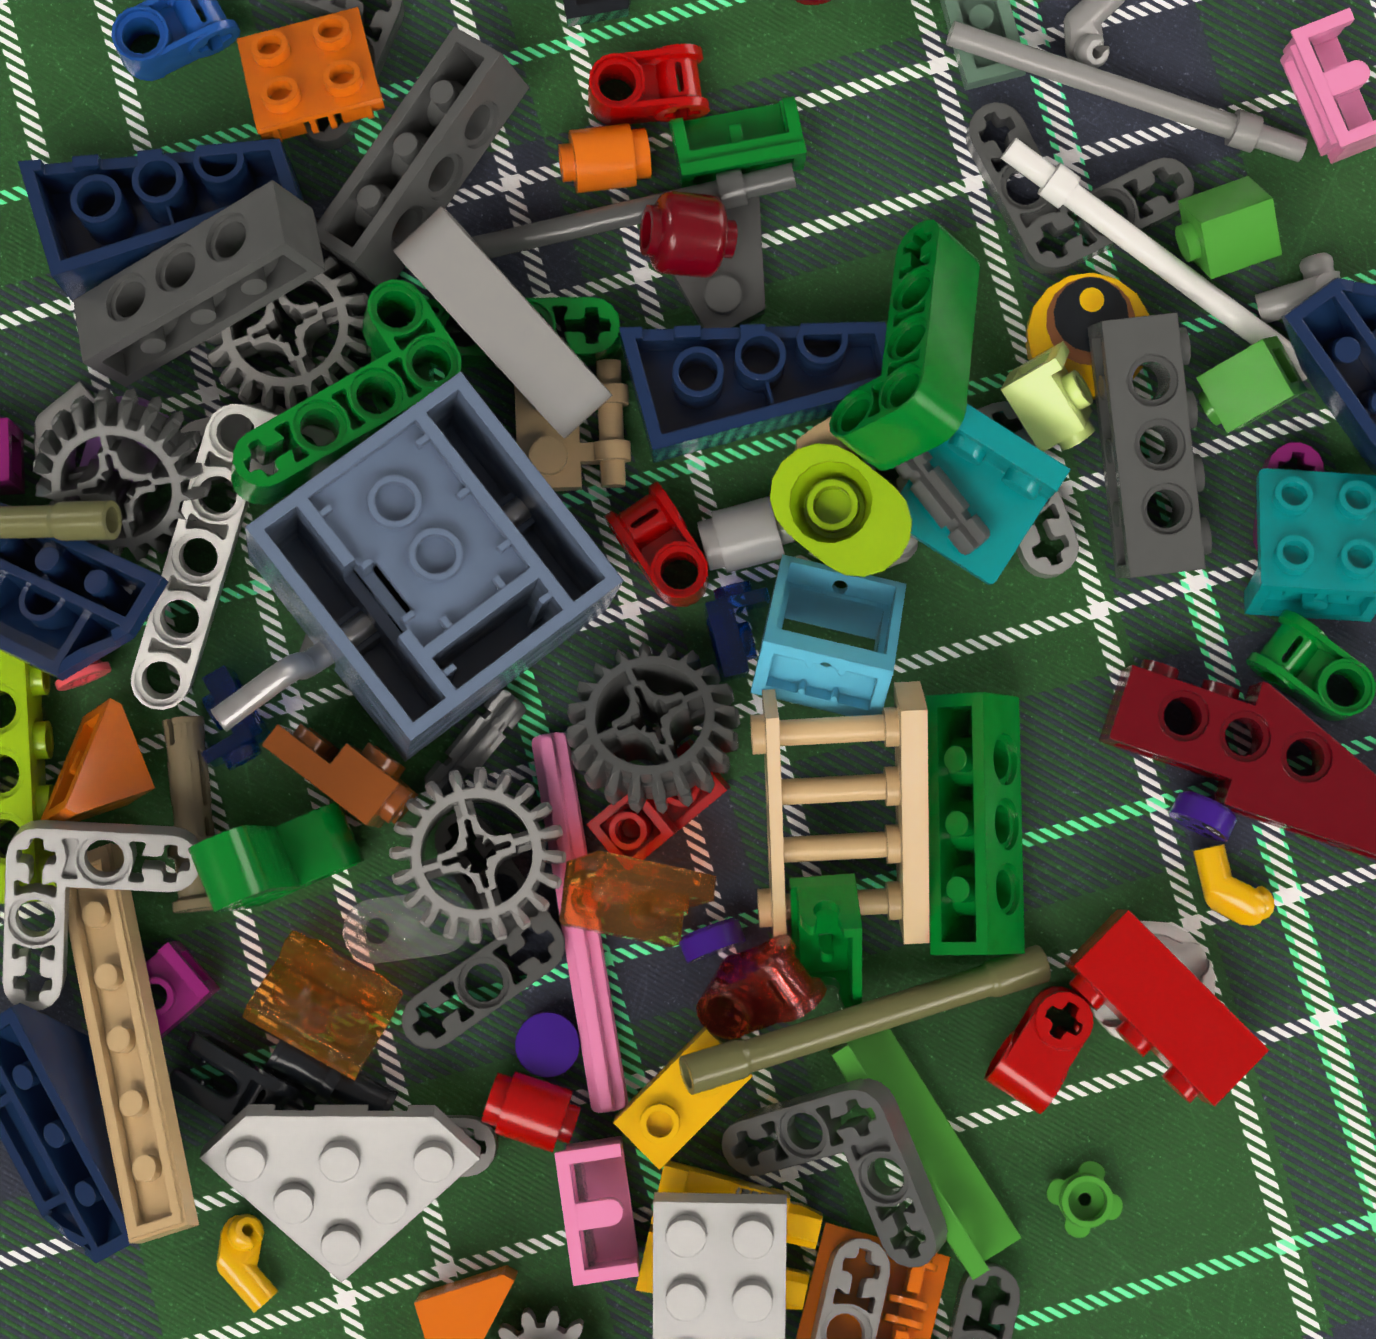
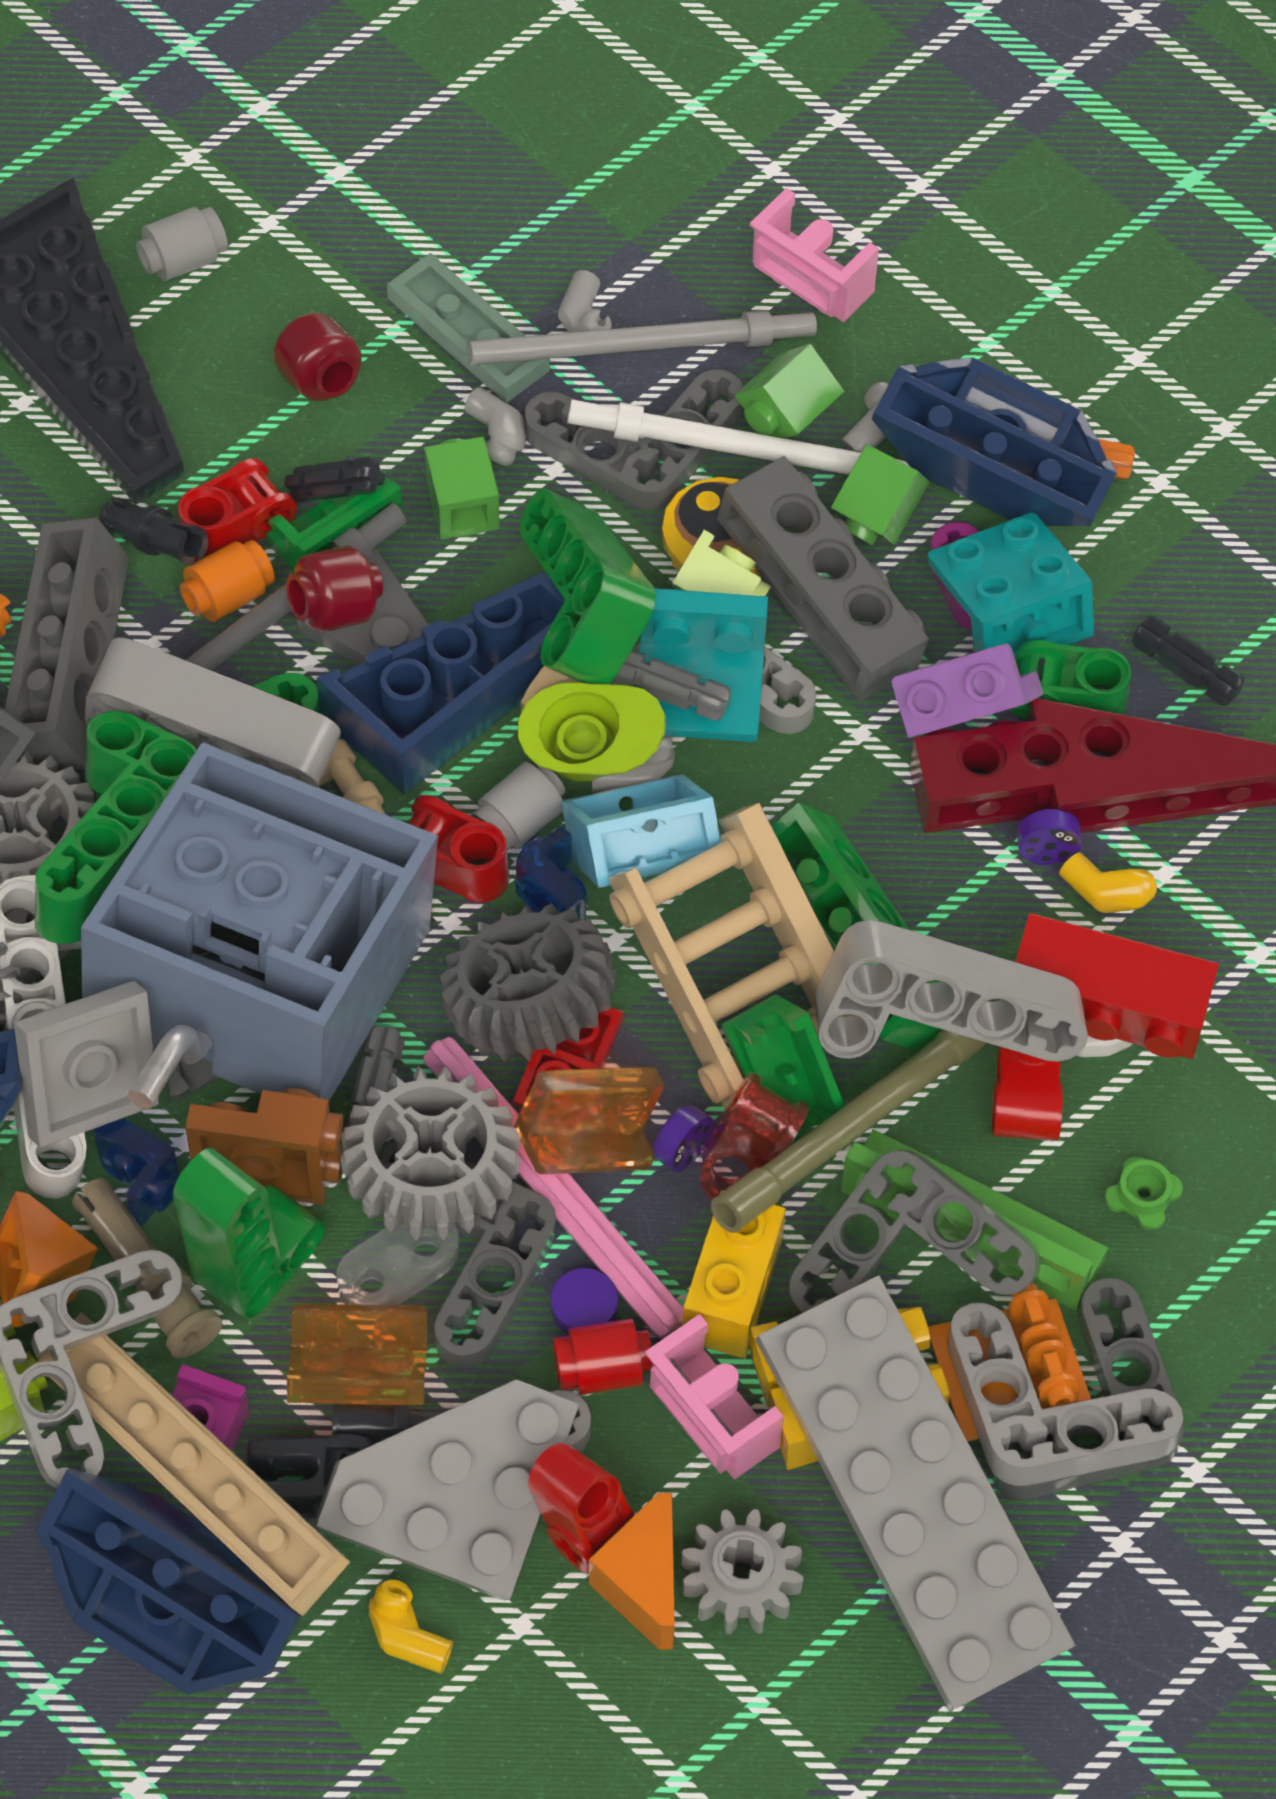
camera: 25 degrees left, 25 degrees down
(207, 634) = (83, 1062): none -> light grey plate
(435, 1244) = (577, 1503): none -> red piece
(561, 75) = (154, 530): none -> black pin
(754, 106) = (335, 479): none -> black axle
(871, 167) = (462, 487): none -> bright green brick
(949, 117) = (504, 425): none -> light grey arm
(1000, 967) = (1036, 1011): none -> light grey beam
(1203, 653) = (963, 690): none -> medium lavender bracket

